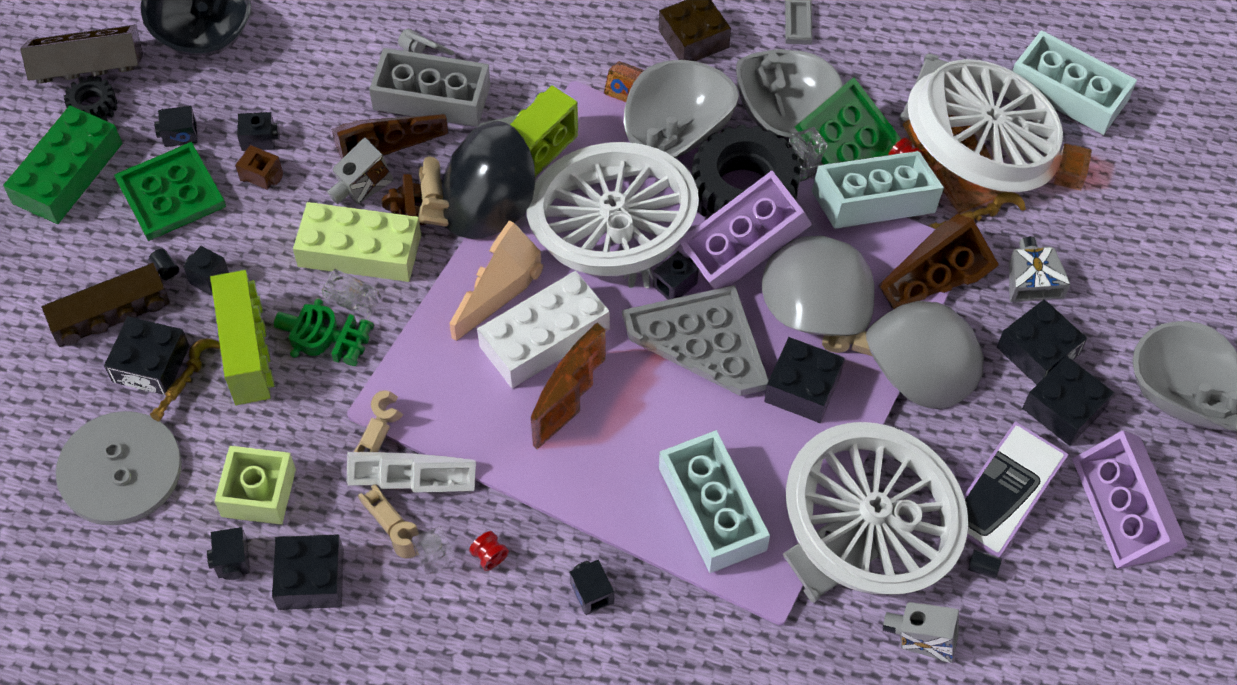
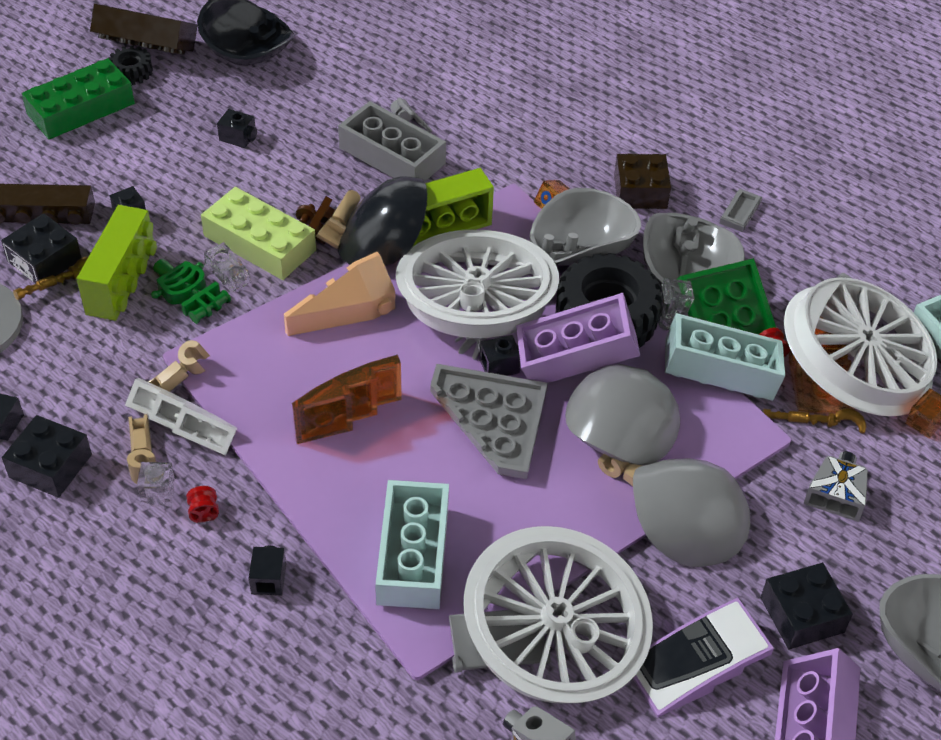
camera: 25 degrees right, 10 degrees down
(164, 264) = (102, 190): black hinge -> none
(170, 191) = (143, 146): green plate -> none
(176, 126) = (180, 103): black brick -> none
(255, 485) = (52, 373): yellowish green brick -> none
(259, 167) = (224, 159): reddish brown brick -> none
(360, 174) = (292, 184): light grey torso -> none
(389, 133) = (324, 165): reddish brown wedge -> none
(541, 328) = (350, 344): white brick -> none
(804, 379) = (561, 482): black brick -> none
(944, 260) = (752, 440): reddish brown wedge -> none
(984, 564) = (638, 713): black hinge -> none
(1040, 341) = (809, 539): black brick -> none

